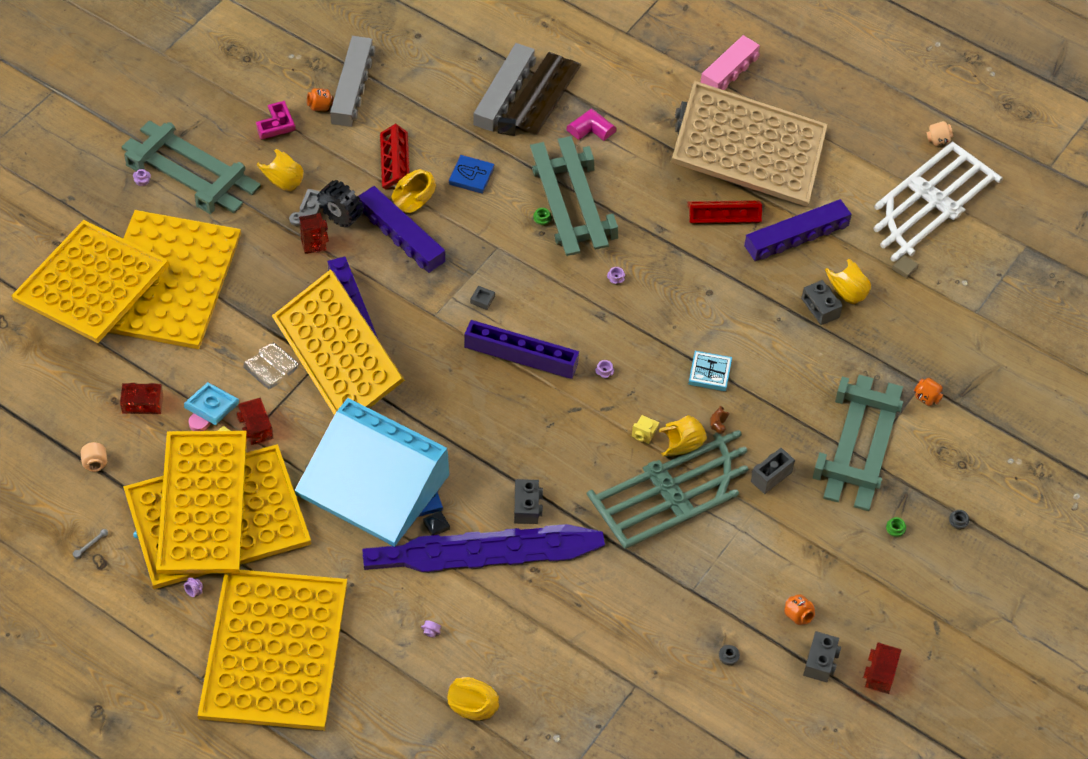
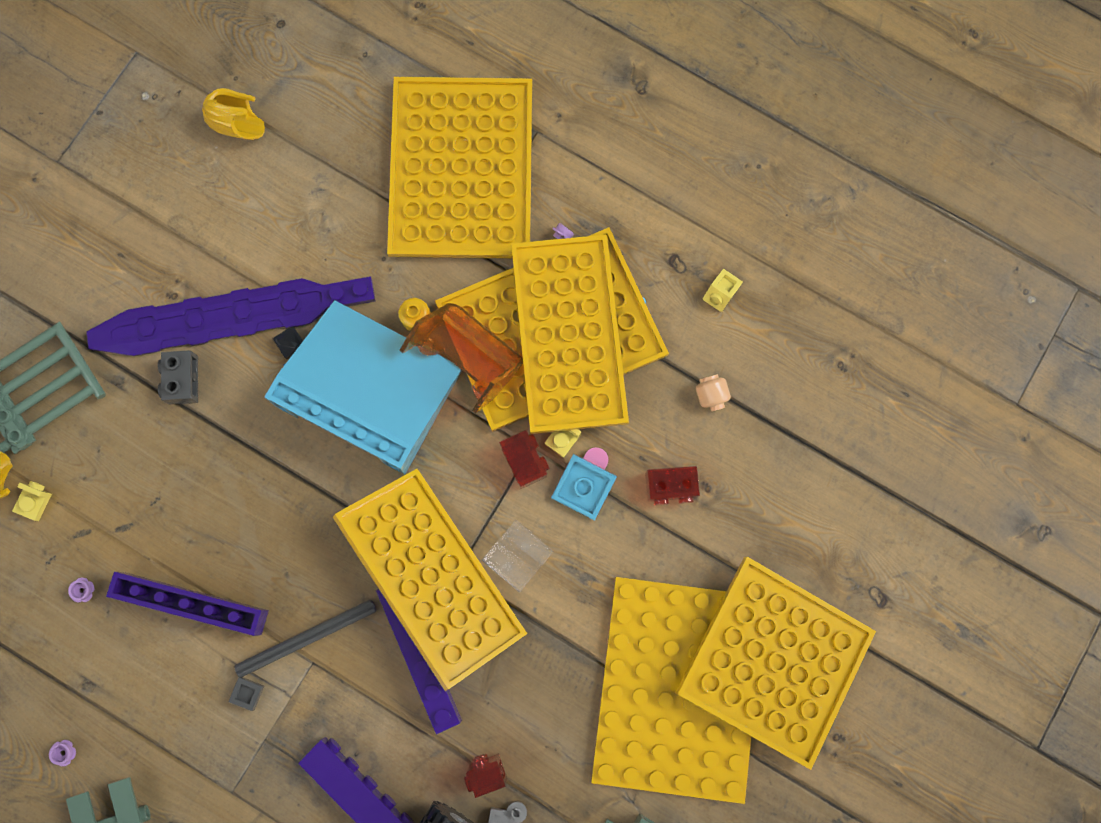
camera: 175 degrees right, 25 degrees up
(65, 532) = (722, 290): none -> light yellow bracket
(78, 553) = (704, 269): light grey hinge -> none
(278, 494) = (469, 347): none -> clear orange windscreen
(329, 529) = (411, 311): none -> yellow head
(431, 628) = (286, 204): lavender plate -> none
(436, 328) = (305, 638): none -> dark grey axle

